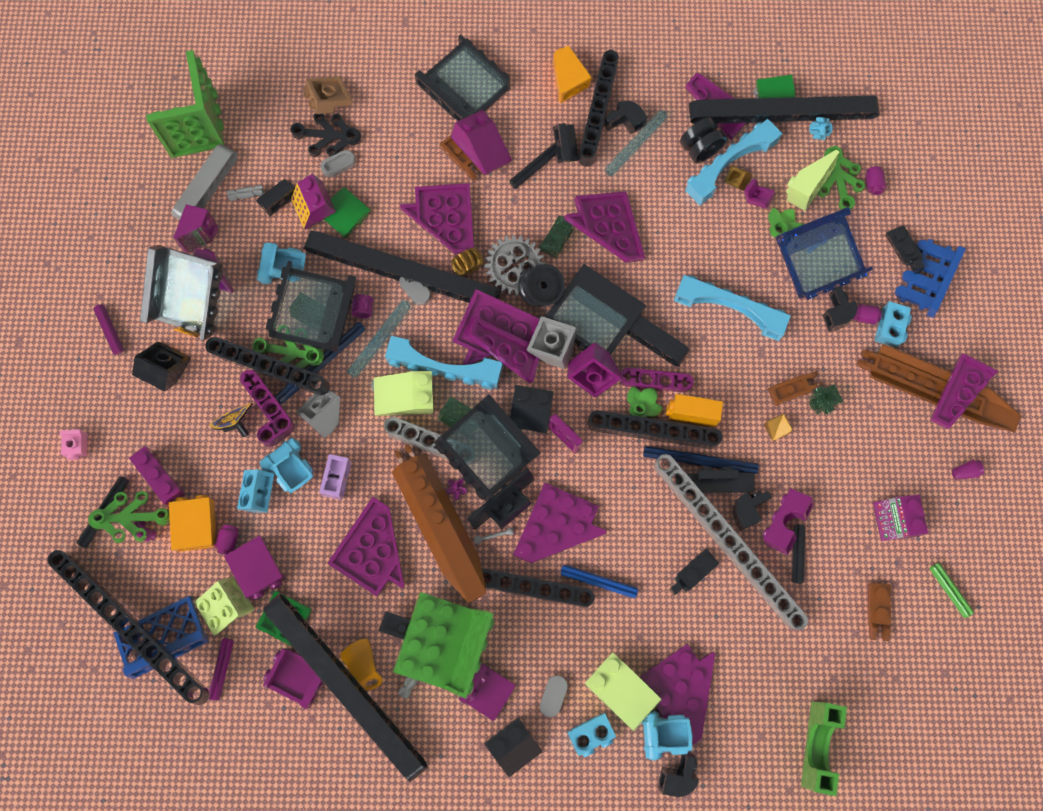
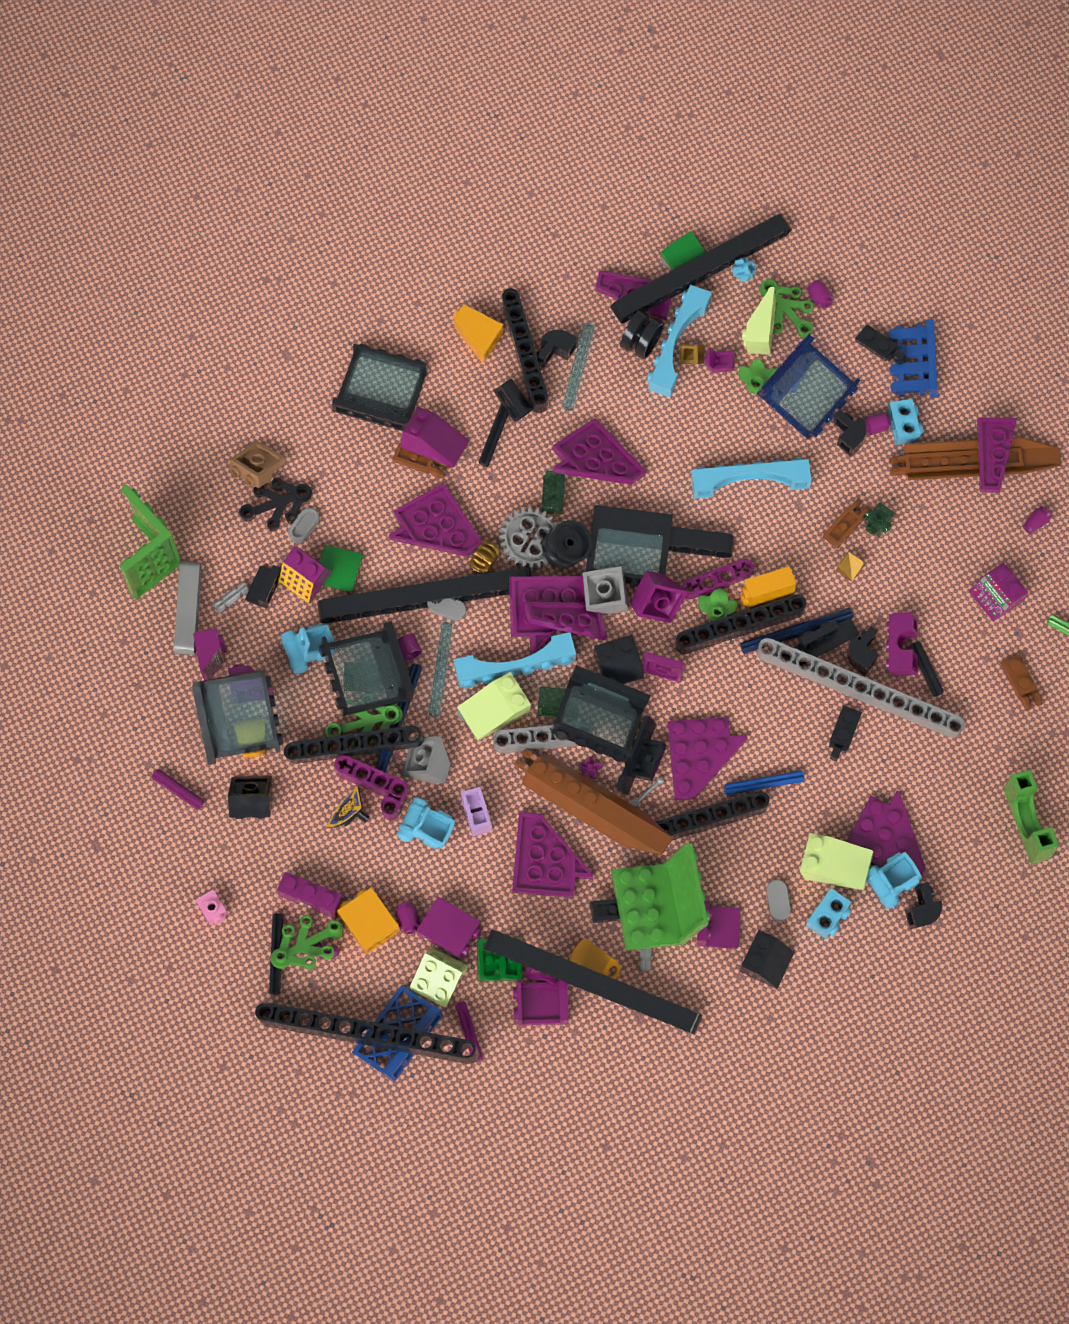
camera: 25 degrees left, 5 degrees down
(255, 491) = (410, 861): medium azure brick -> none

